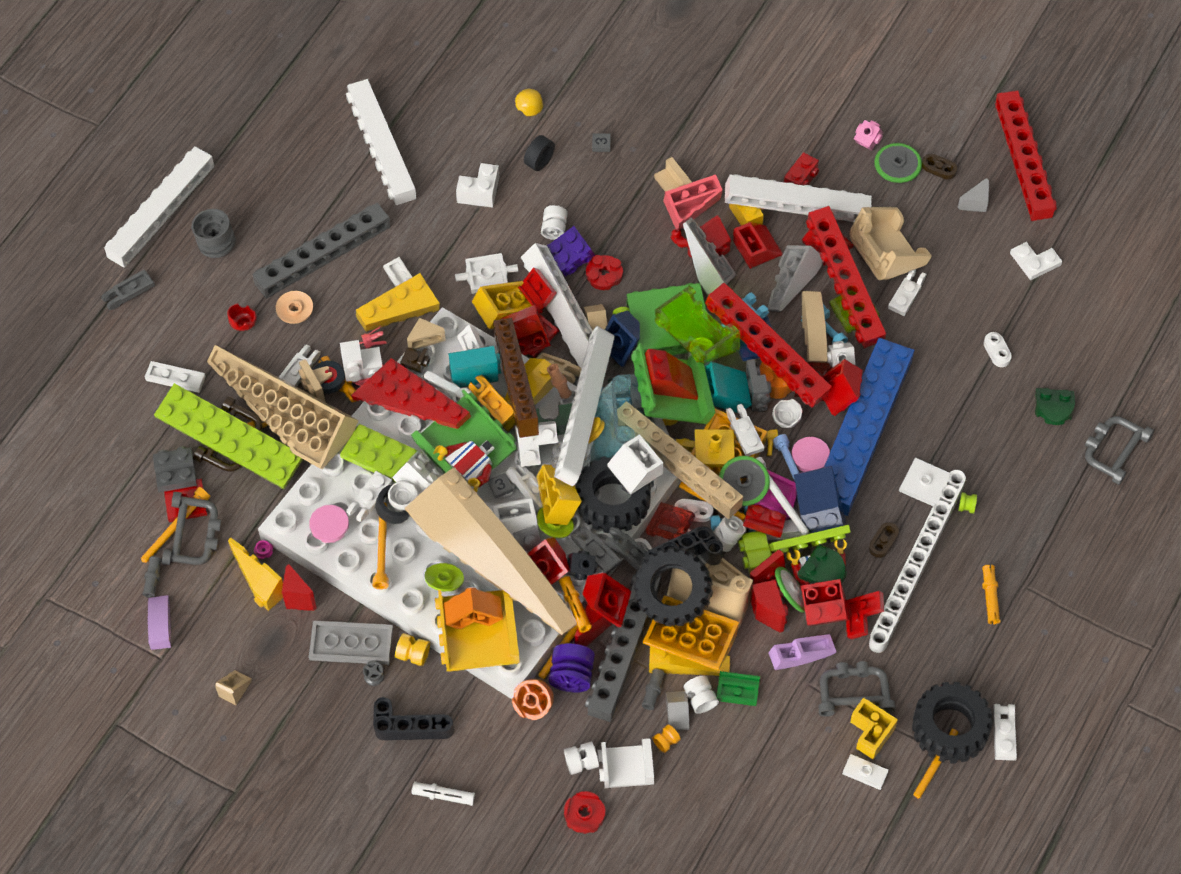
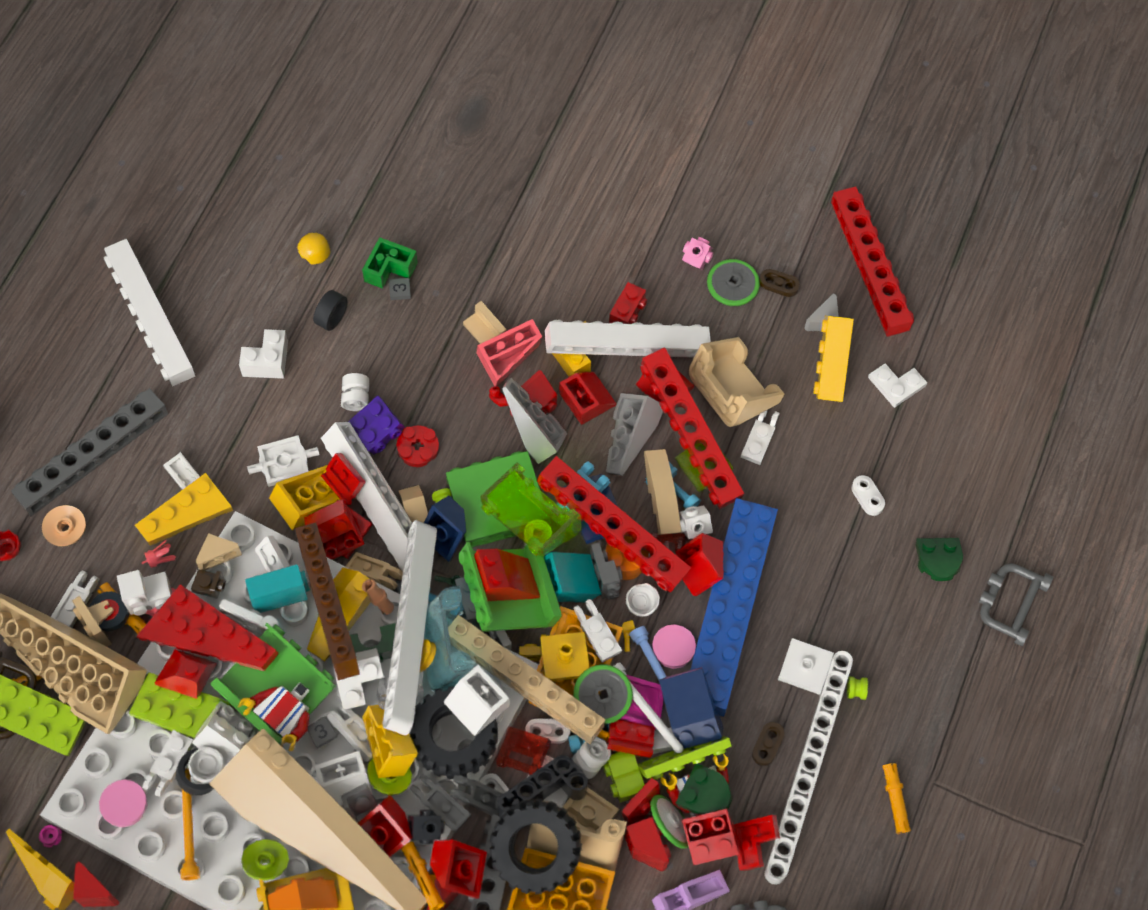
camera: 10 degrees left, 5 degrees up
(390, 427) = (185, 673): none -> red slope
(492, 400) = (301, 629): light orange plate -> none
(594, 115) = (386, 259): none -> green brick
(980, 230) = (834, 358): none -> yellow wedge

